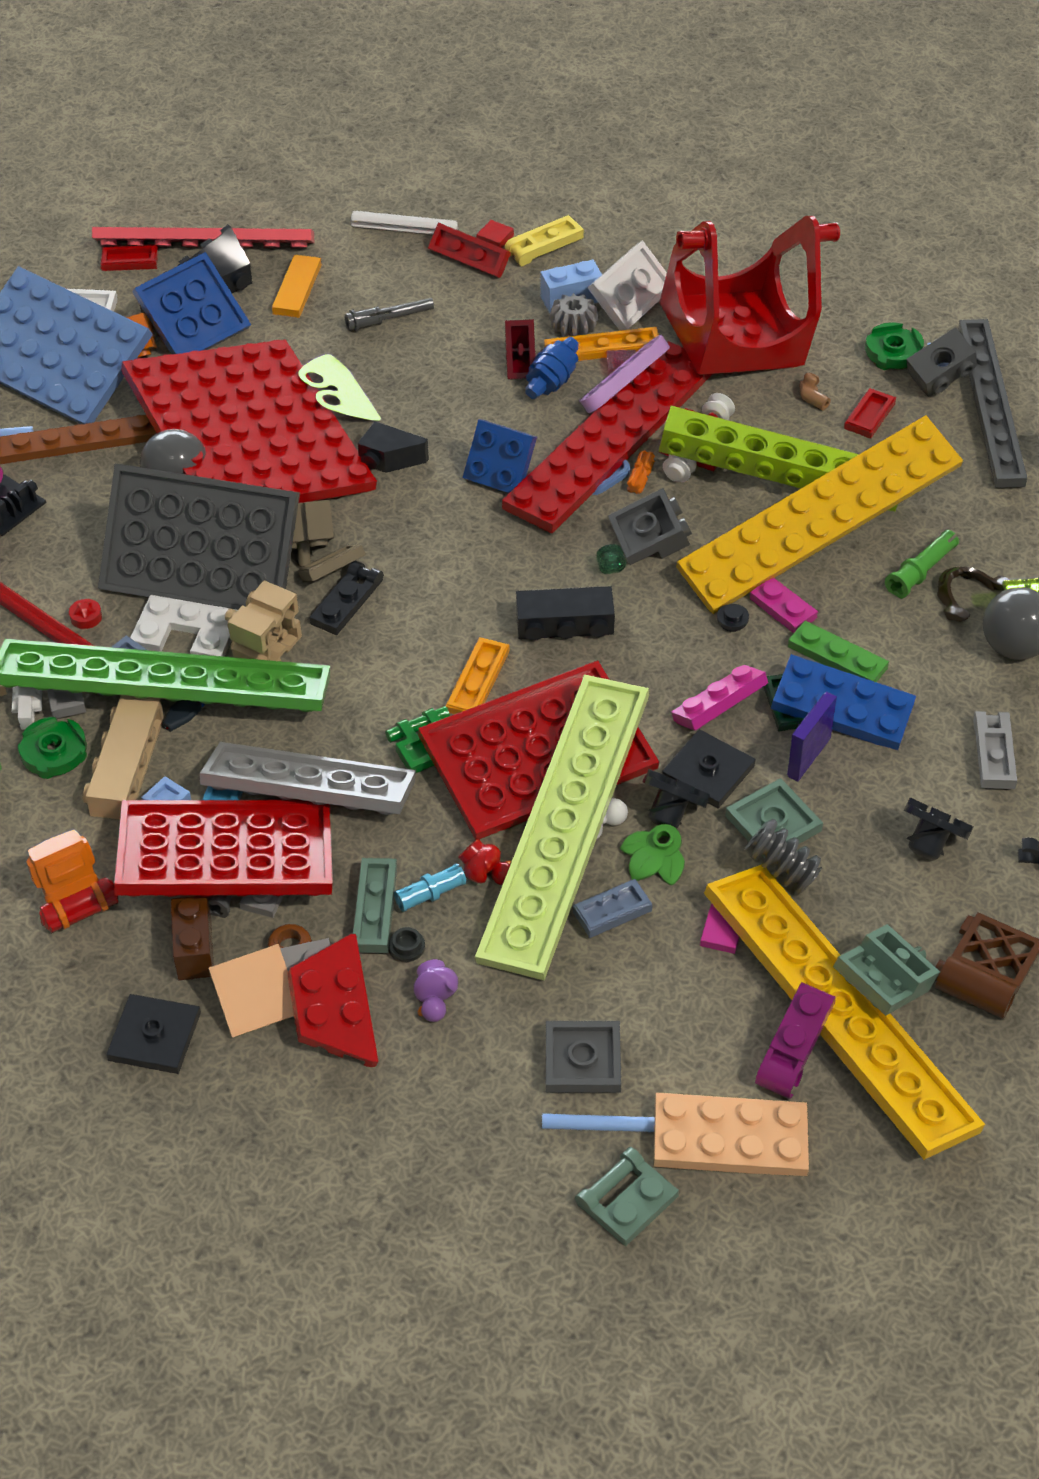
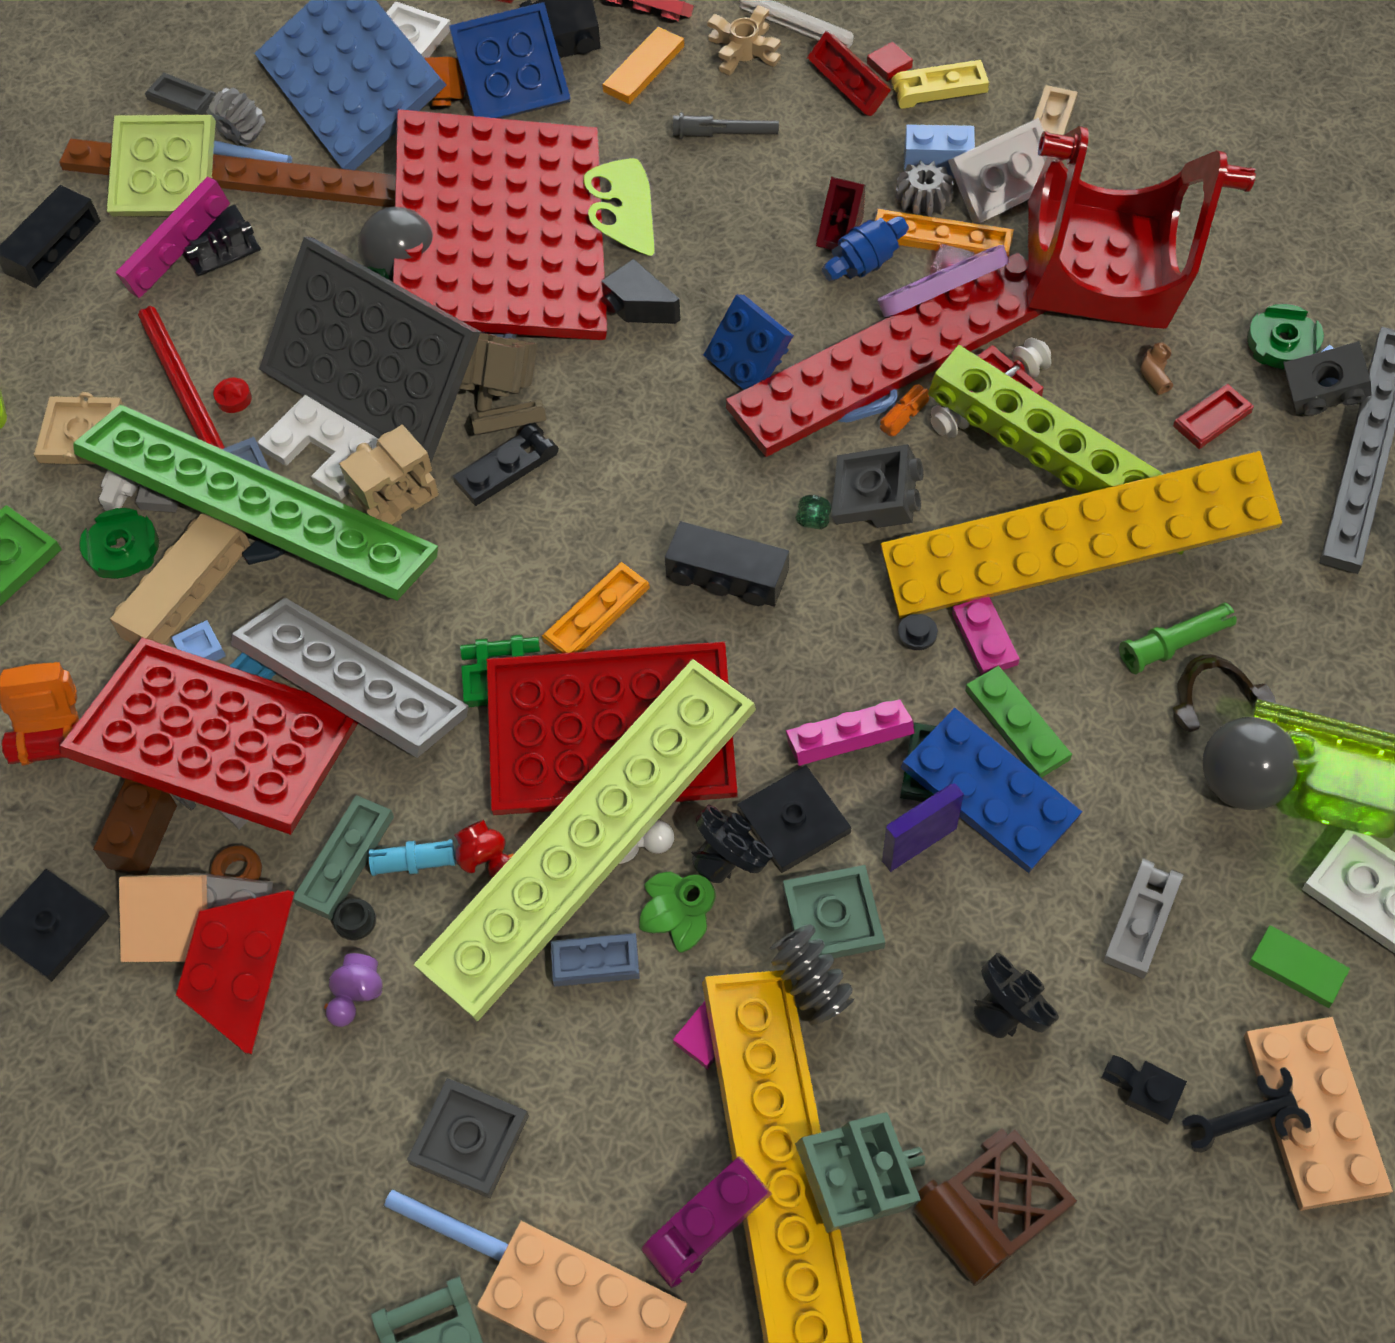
camera: 25 degrees right, 10 degrees up
(371, 246) = (744, 40): none -> tan pin
(646, 231) = (1055, 109): none -> tan plate

